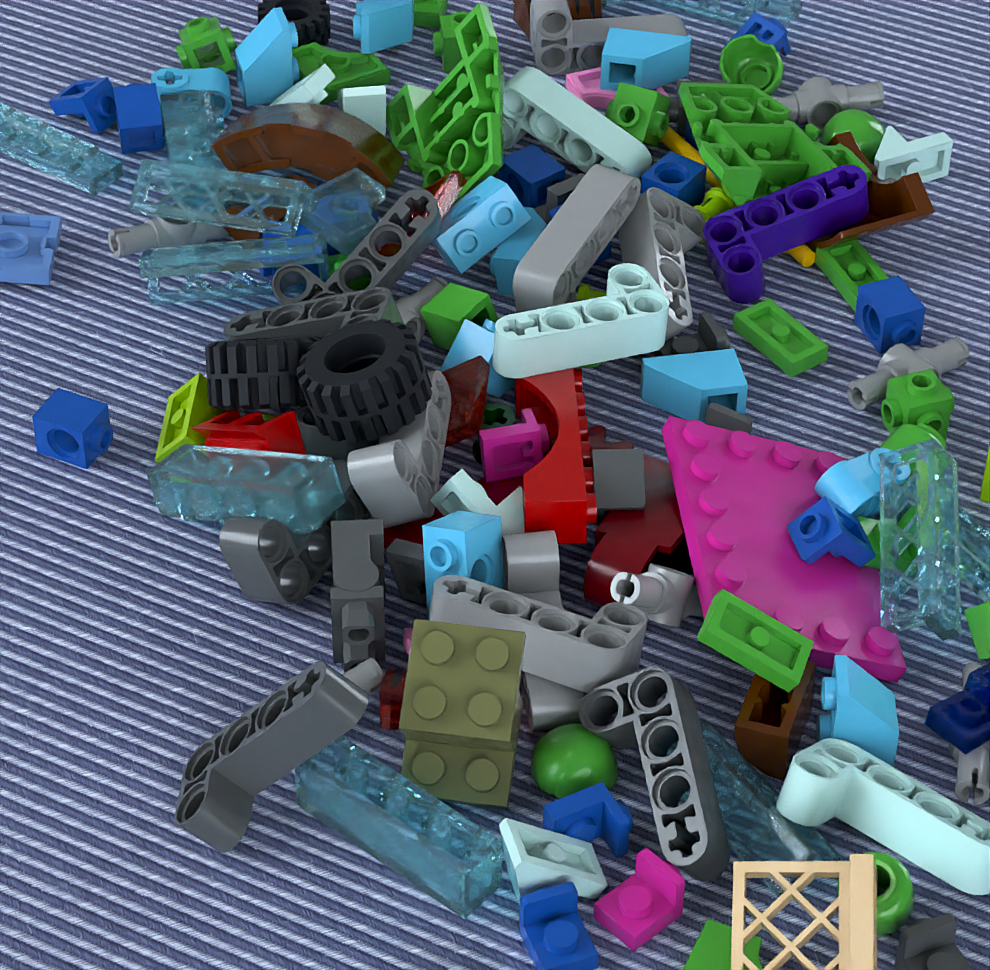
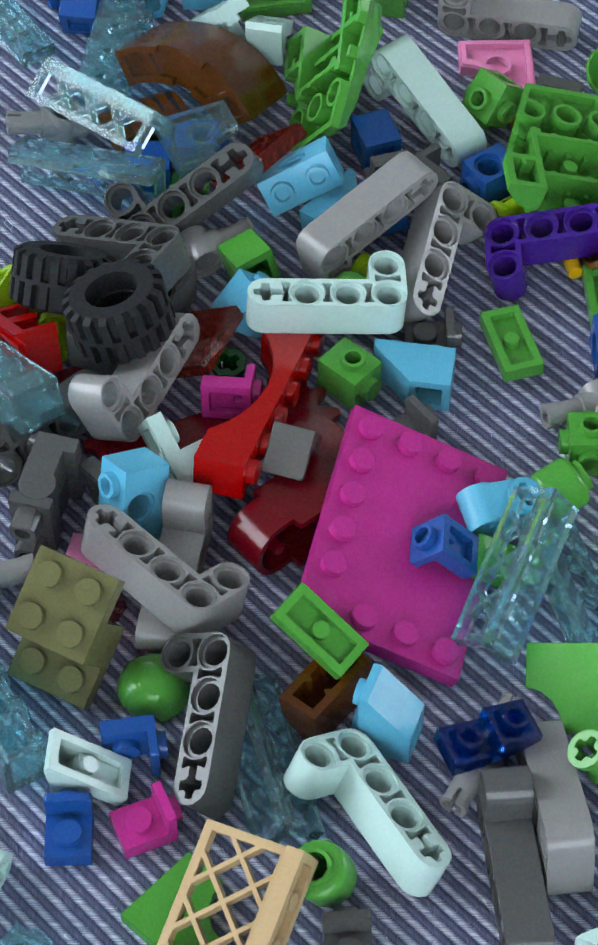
camera: 20 degrees right, 10 degrees up
(627, 403) = (350, 373): none -> bright green brick
(643, 59) = (521, 45): medium azure slope -> none
(660, 592) = (272, 564): light grey pin -> none

